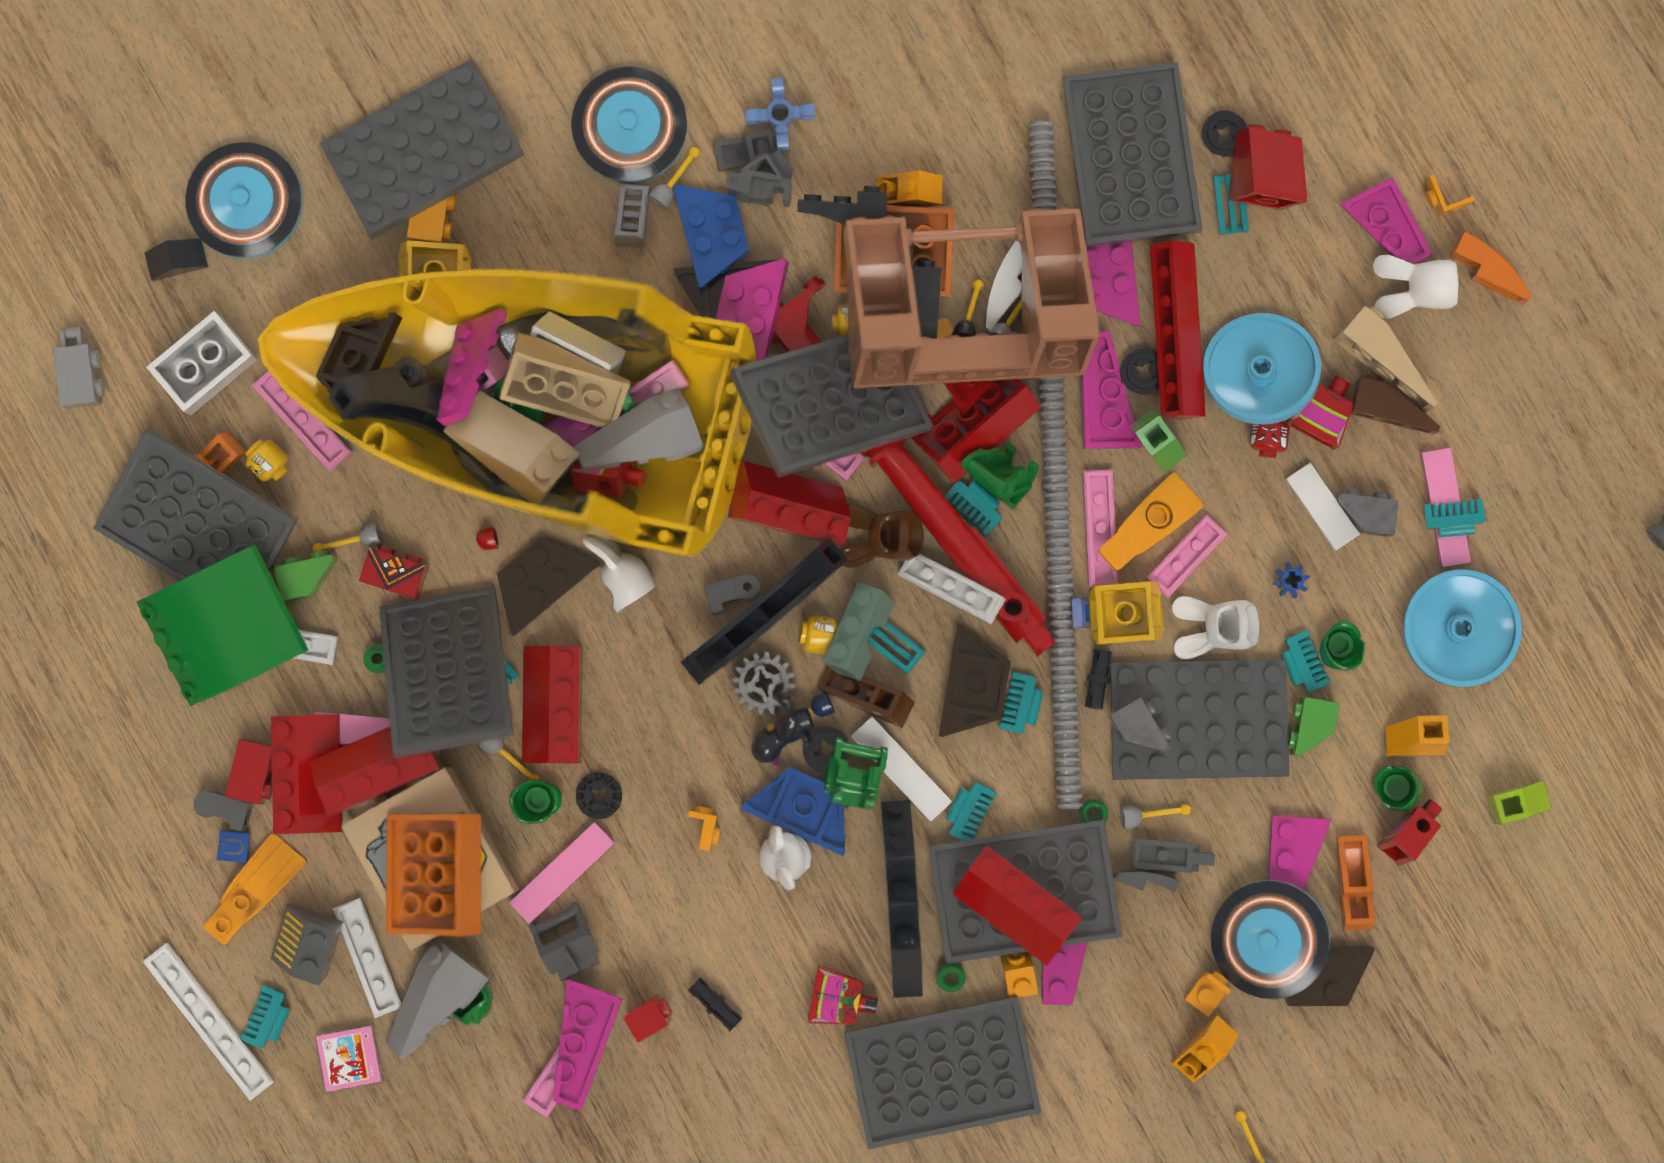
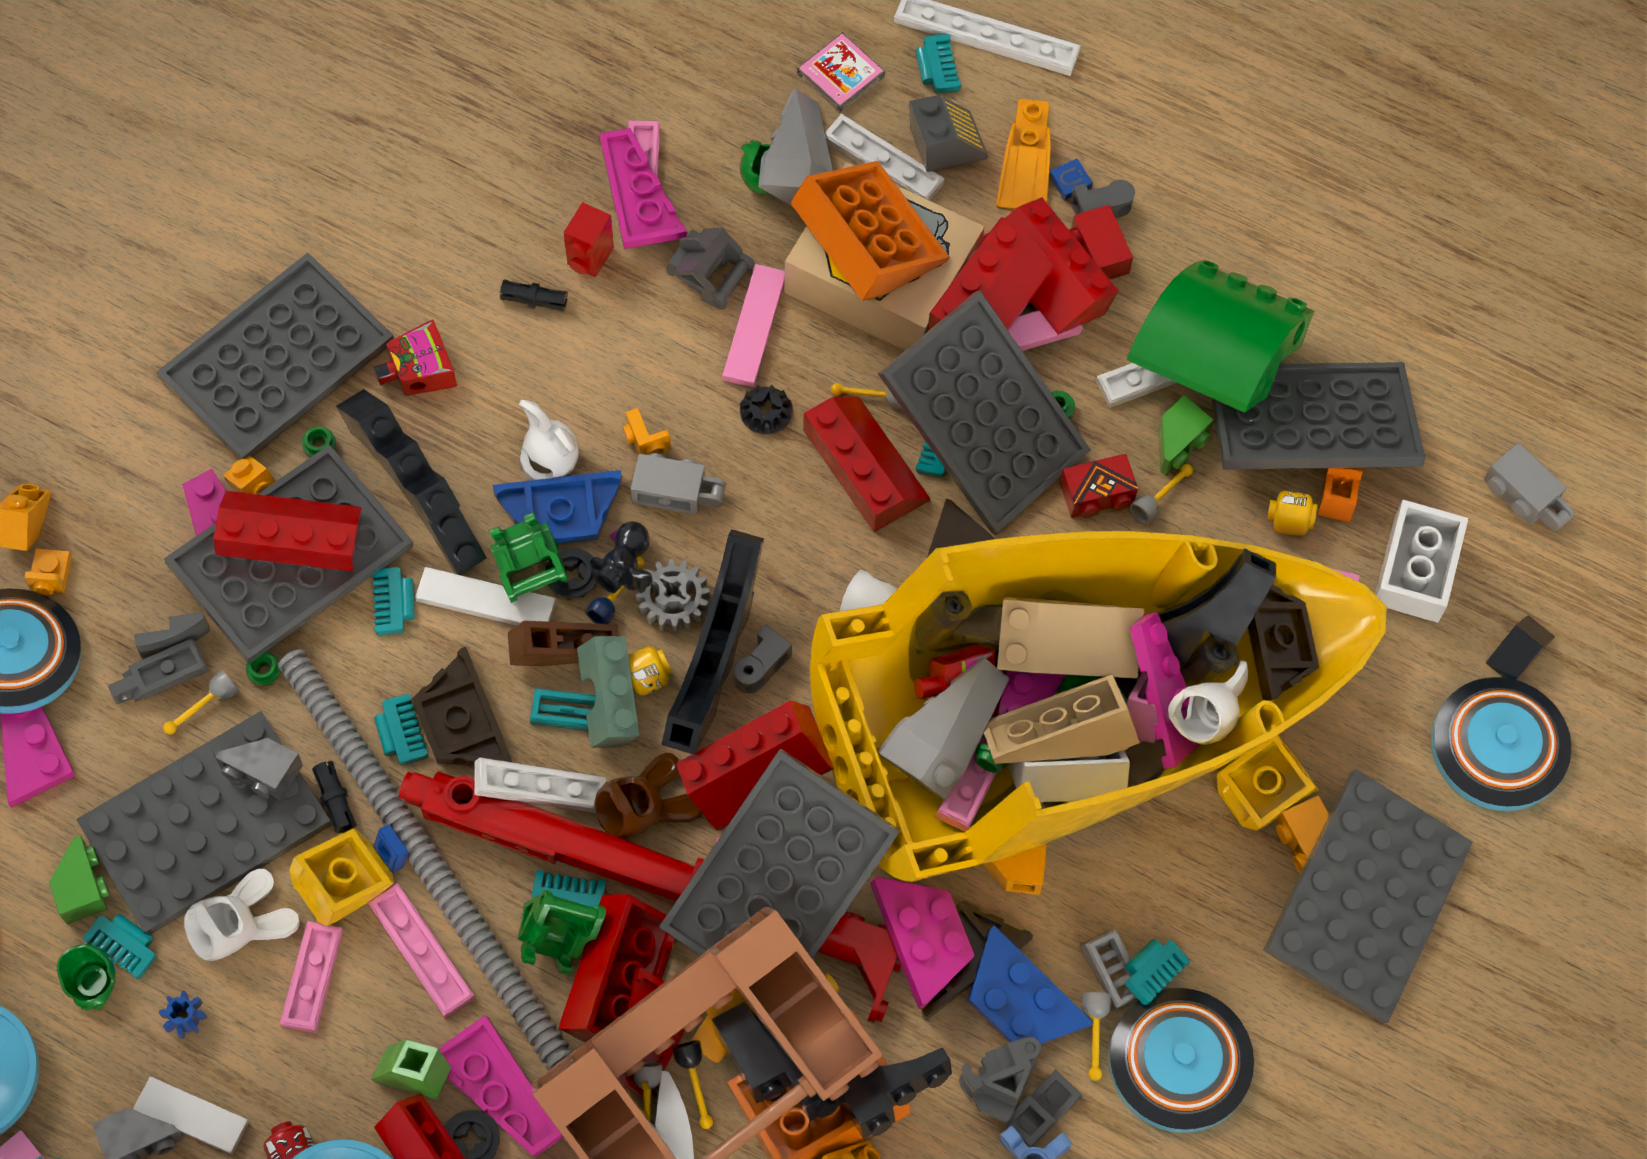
camera: 145 degrees right, 20 degrees down
(447, 328) = (1211, 708): none -> white piece
(534, 801) = (822, 362): green hair -> none
(605, 200) = (1149, 964): none -> teal piece
(708, 773) = (674, 484): none -> light grey brick
(1151, 521) = (370, 986): light orange piece -> none

